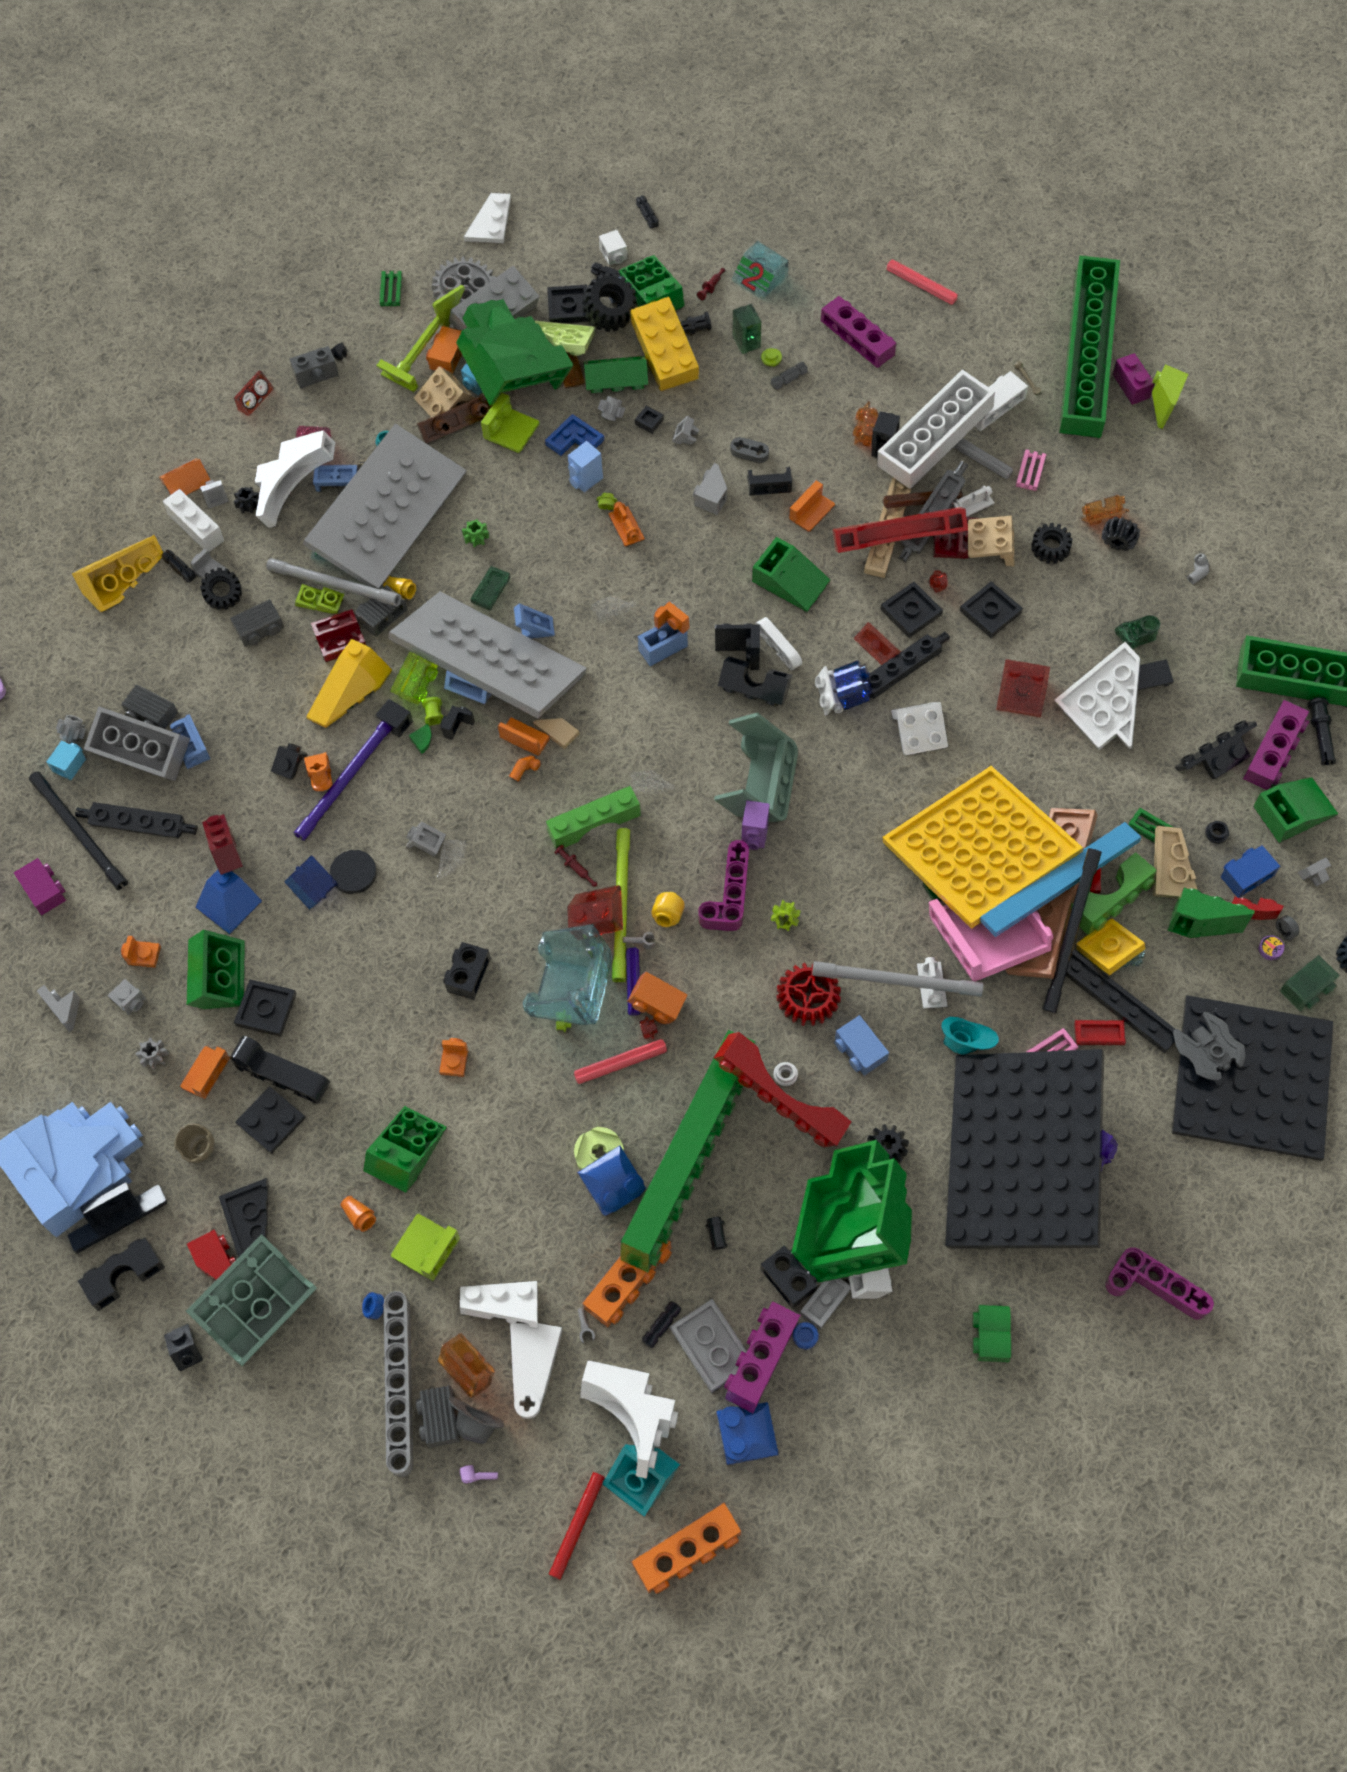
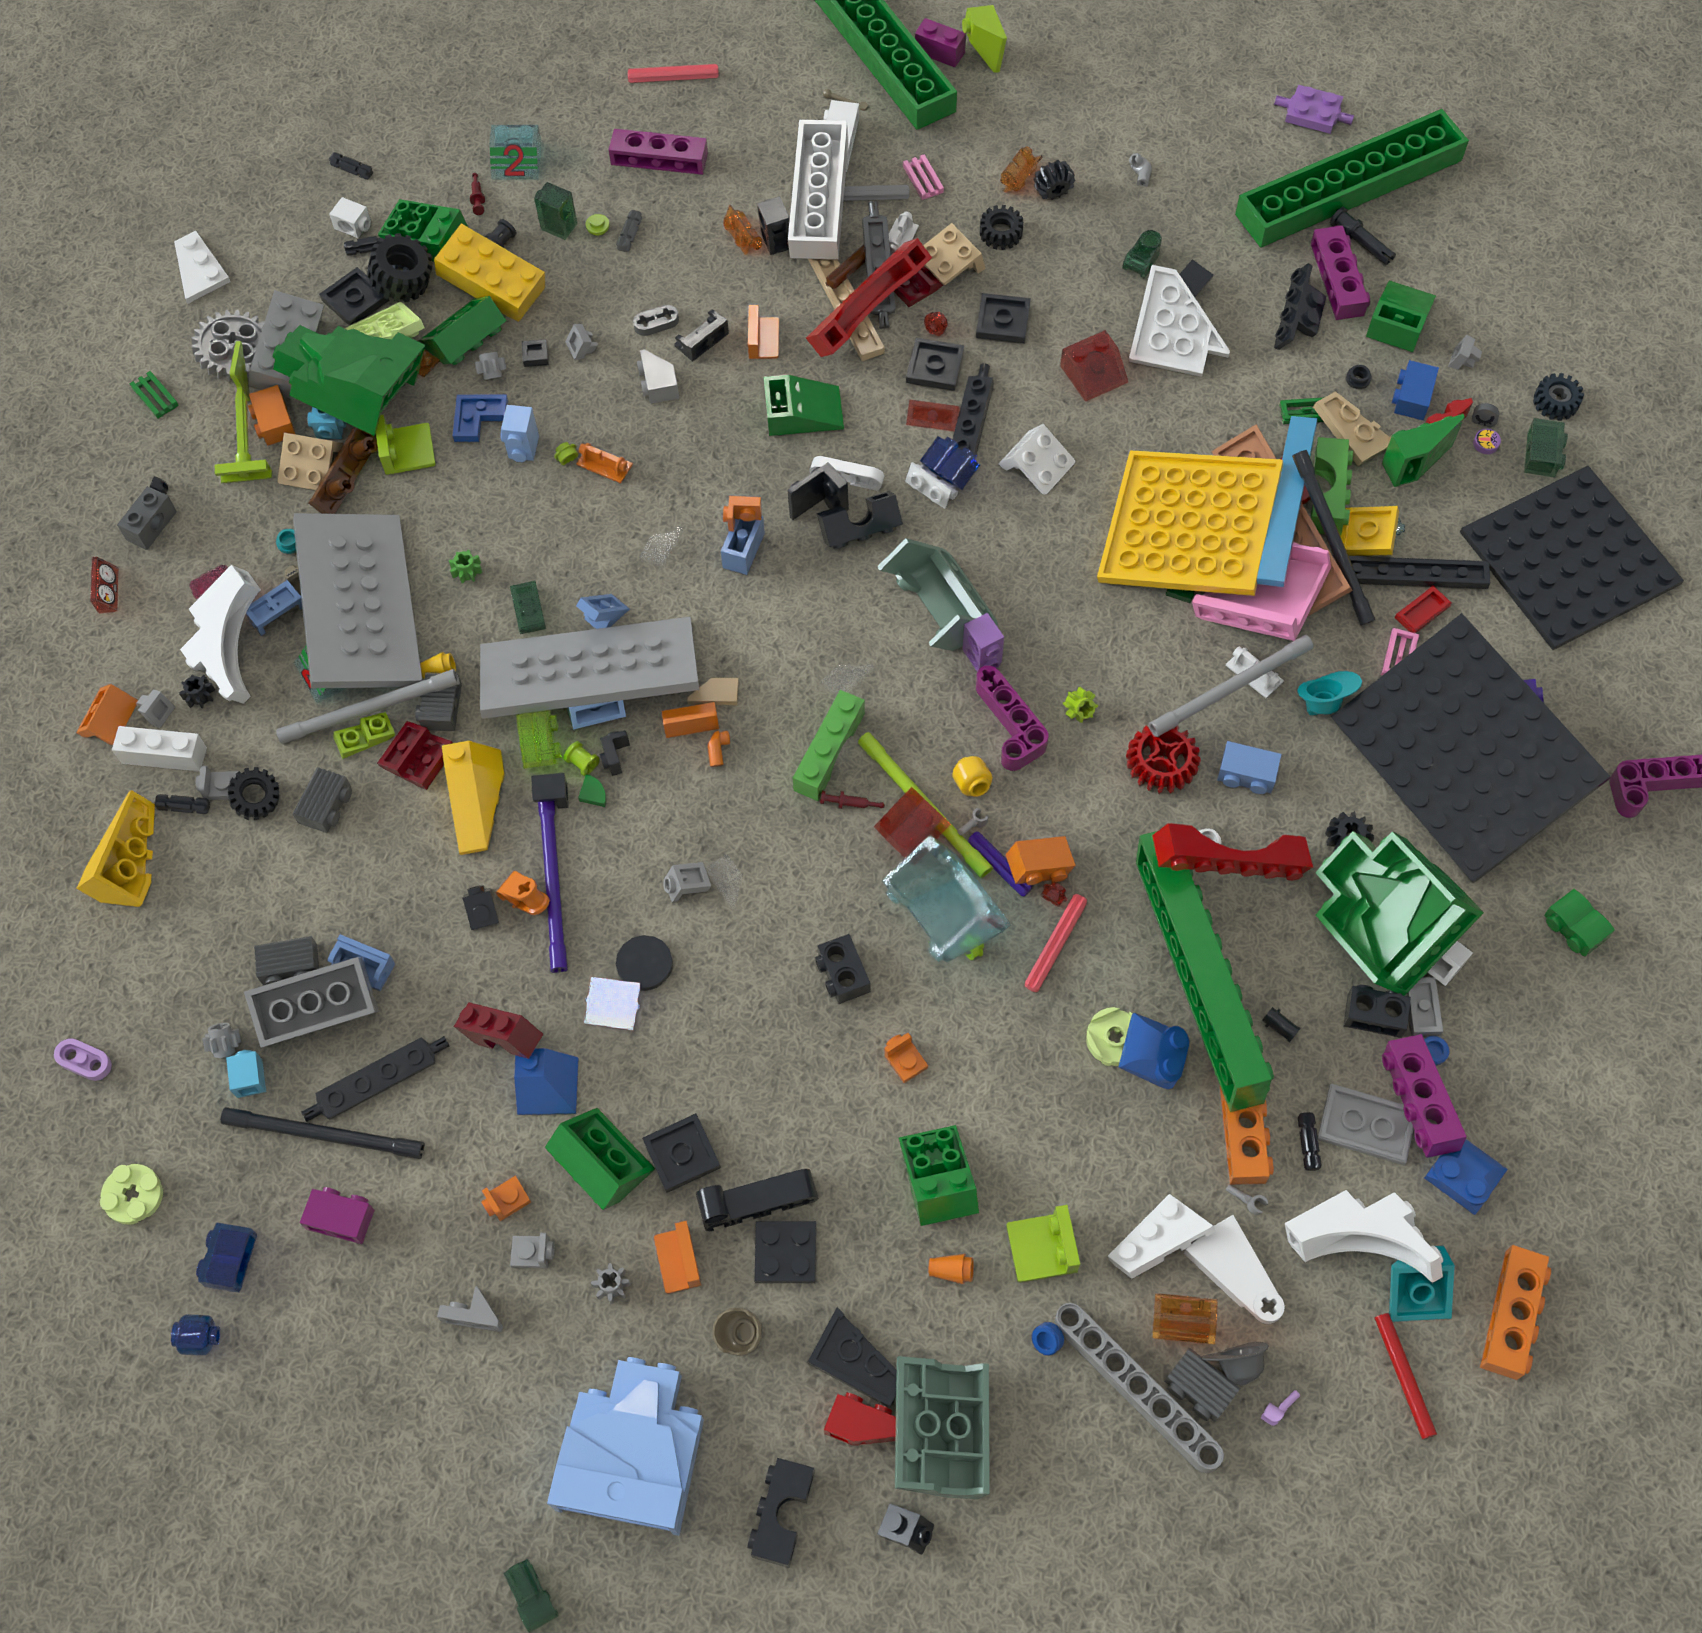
camera: 40 degrees left, 0 degrees up
(114, 1212) = (721, 1463): black bracket -> none
(1210, 1050) = (1525, 554): dark grey piece -> none

